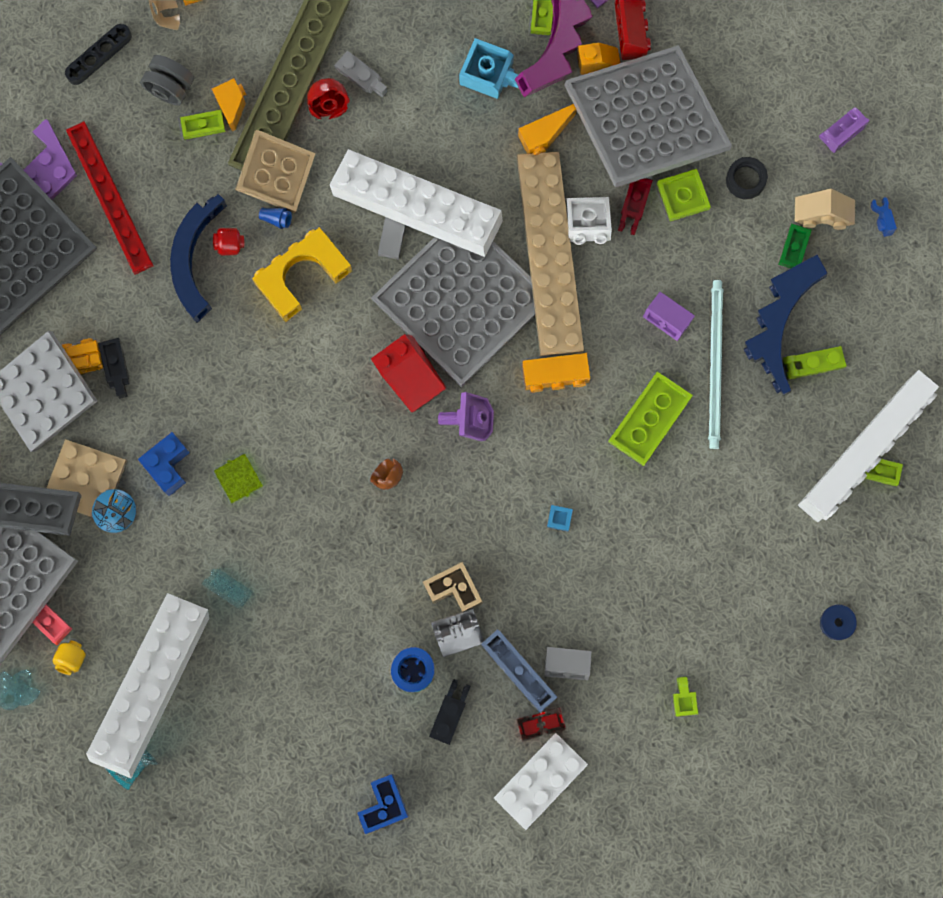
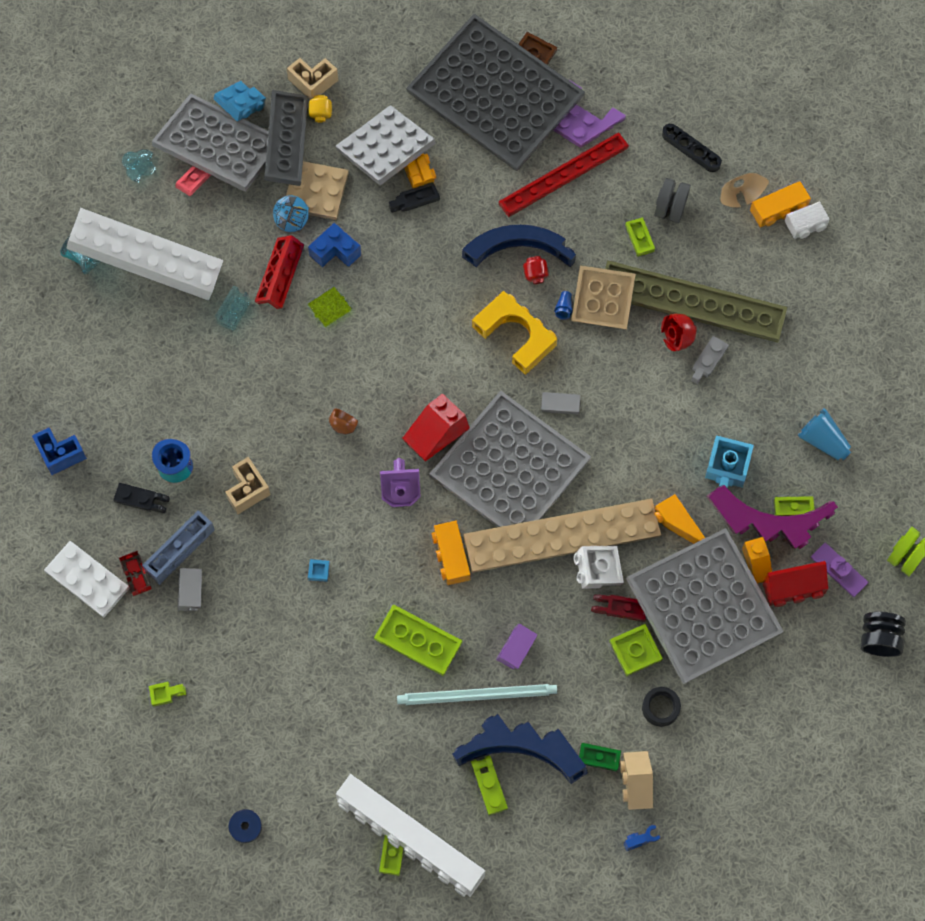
camera: 80 degrees right, 10 degrees down
(69, 657) = (166, 197): yellow head -> none
(186, 527) = (281, 271): none -> red fence
(231, 101) = (663, 256): light orange slope -> none
(416, 203) = (590, 415): white brick -> none
(457, 632) = (208, 493): flat silver hinge -> none
(844, 129) = (723, 795): medium lavender hinge -> none

